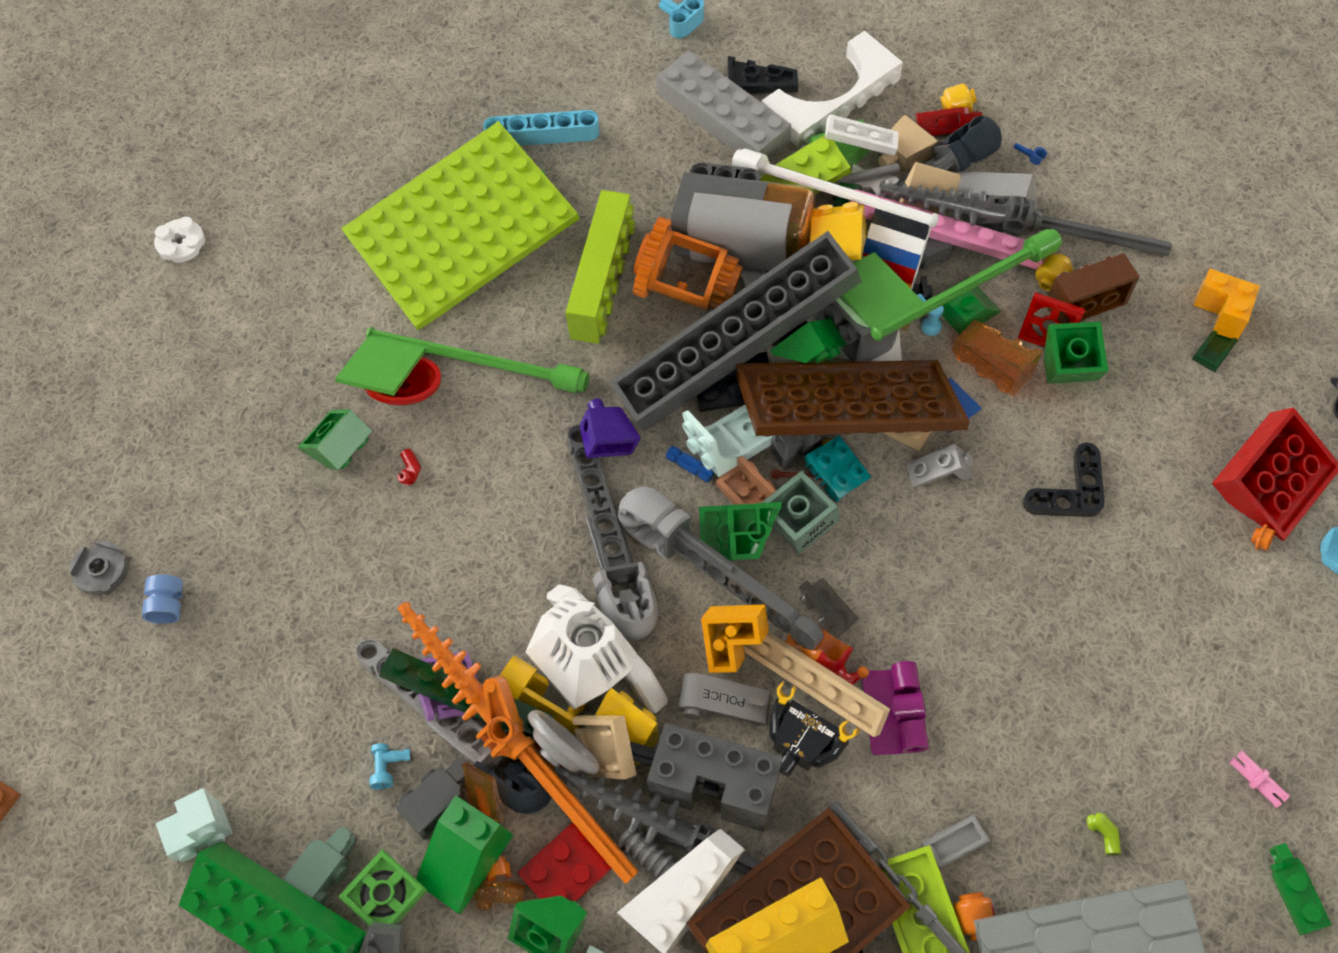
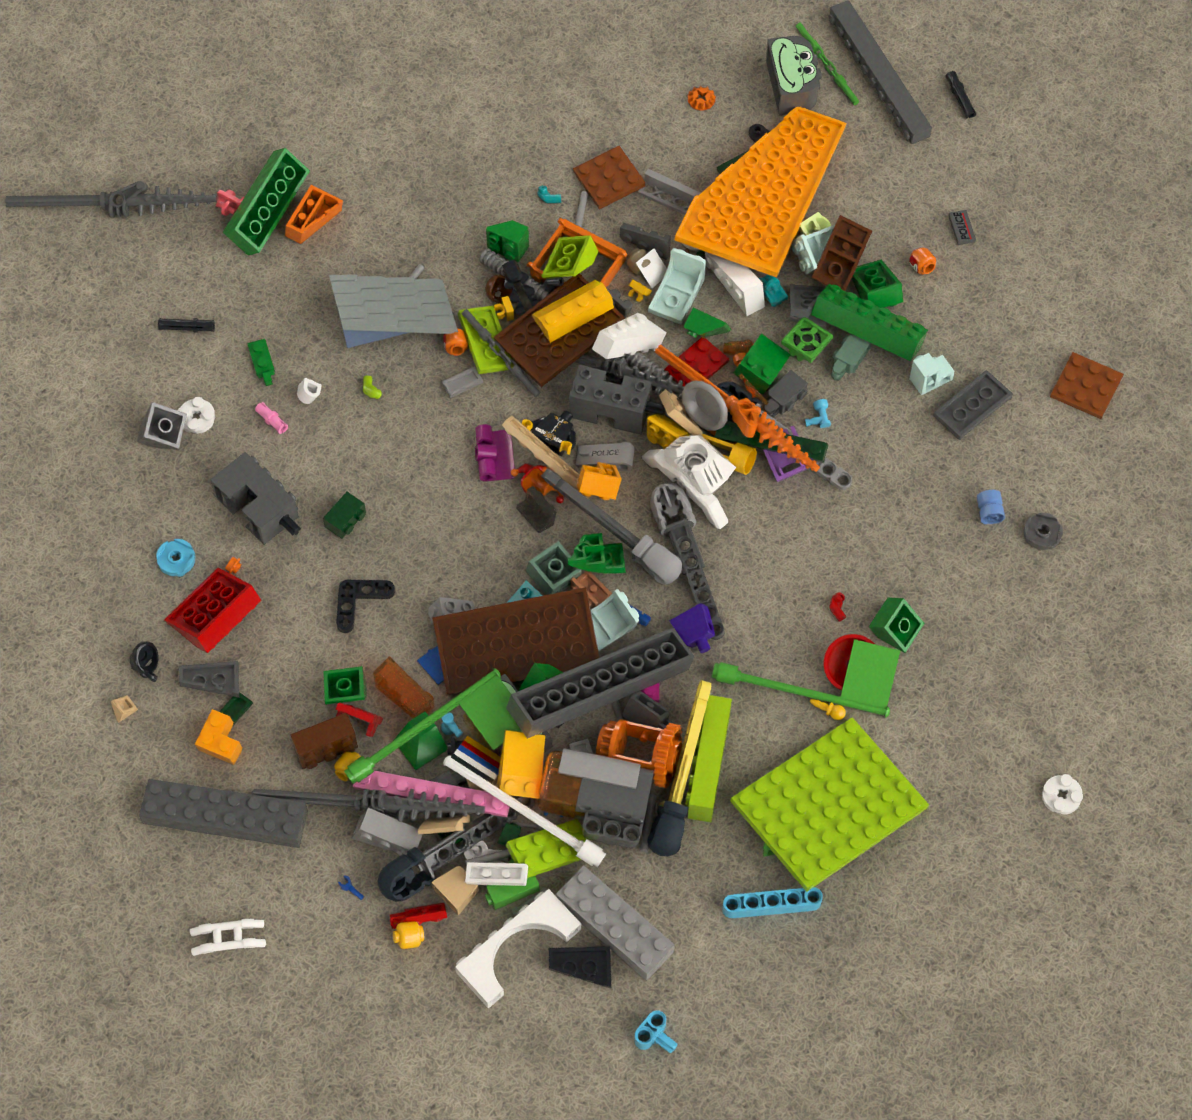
camera: 175 degrees right, 0 degrees up
(143, 776) = (972, 404): none -> dark grey plate
(433, 333) = (836, 711): none -> yellow bar
(653, 198) = (669, 823): none -> piece
(666, 316) = (646, 711): none -> dark grey hinge
(1114, 603) = (344, 515): none -> dark green brick
(1157, 111) = (218, 945): none -> white piece
(1206, 220) = (223, 813): none -> dark grey brick
(1208, 821) = (308, 391): none -> white plate
(1230, 614) = (270, 505): none -> dark grey piece
(1254, 384) = (211, 677): none -> dark grey wing

